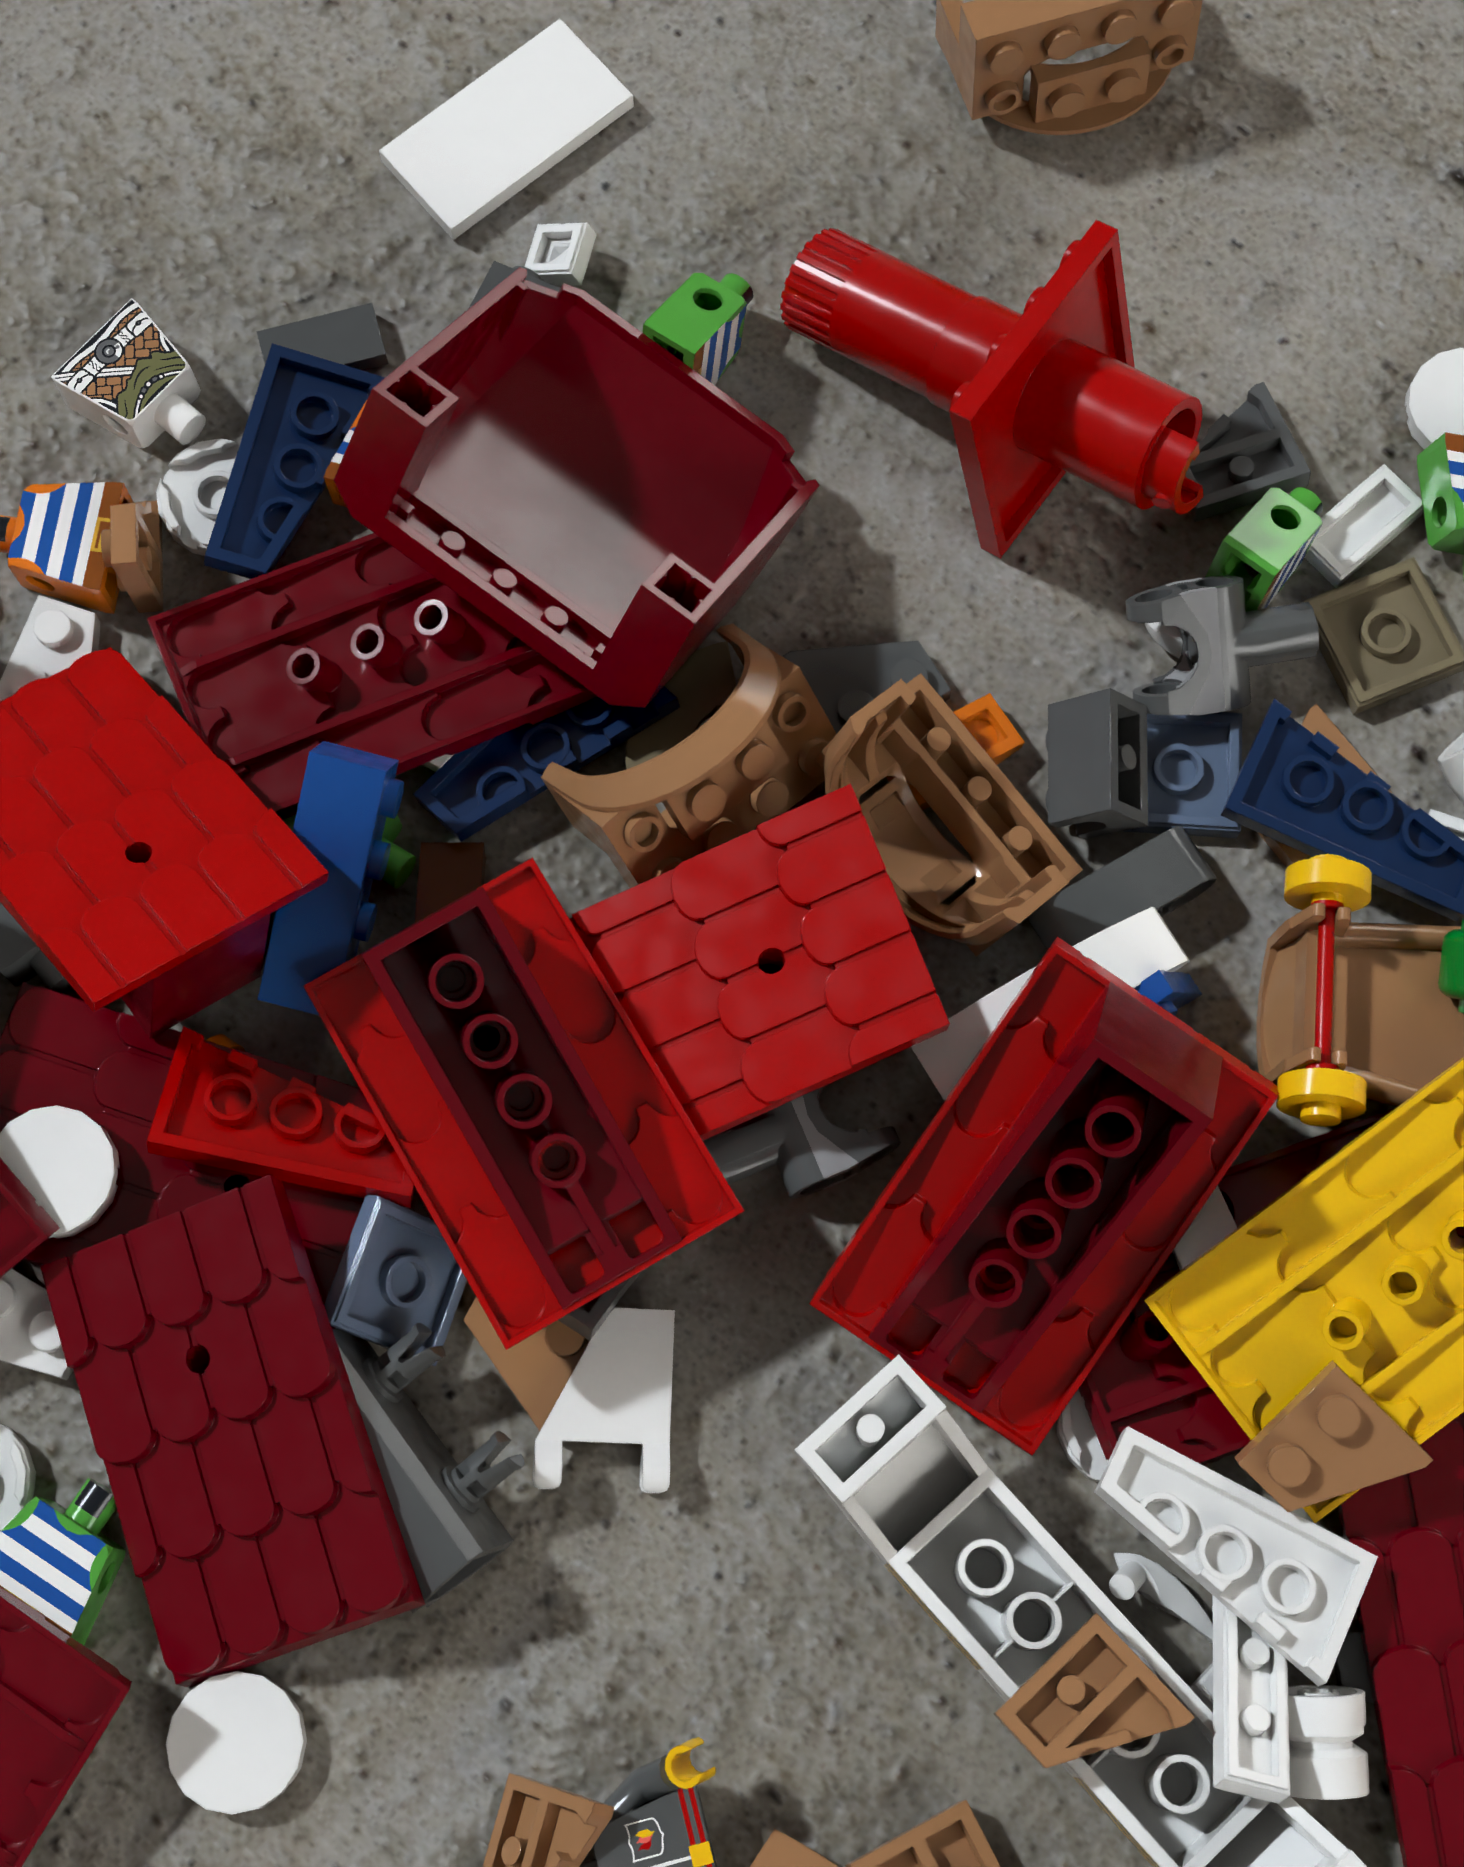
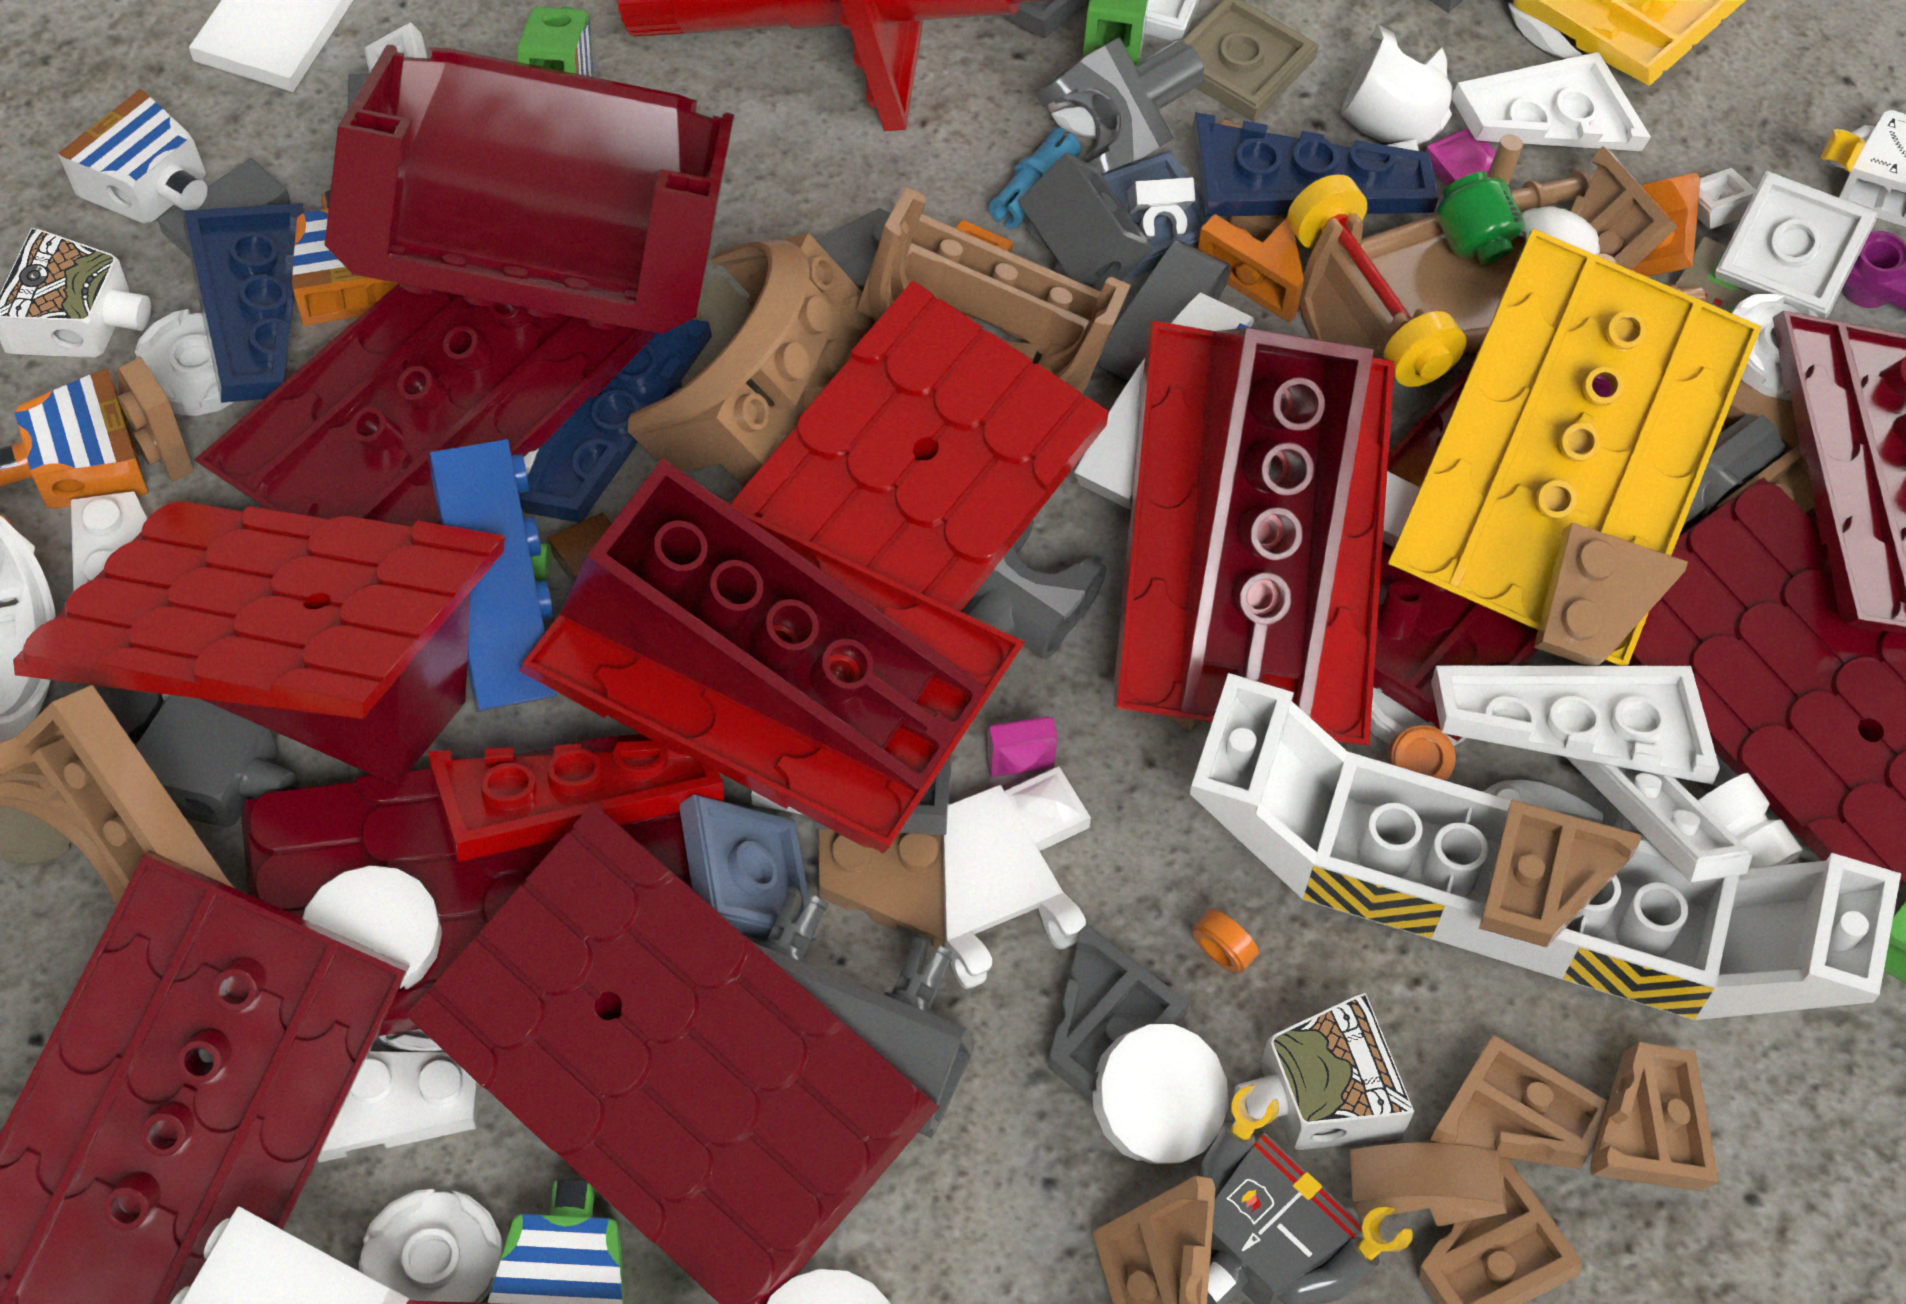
camera: 35 degrees left, 15 degrees down
(267, 262) = (136, 162): none -> torso
(635, 1687) = (1160, 1094): none -> white tile
(637, 1587) = (1101, 1002): none -> dark grey wing
(706, 1351) = (1049, 808): none -> white tile
(714, 1284) = (1021, 746): none -> dark pink tile
(782, 1572) = (1224, 941): none -> orange tile
(791, 1758) = (1332, 1080): none -> torso
(1071, 1488) = (1423, 751): none -> orange tile
(1092, 675) = (1027, 173): none -> dark azure pin
(1187, 774) = (1161, 197): none -> white tile
(1248, 900) = (1261, 271): none -> orange slope

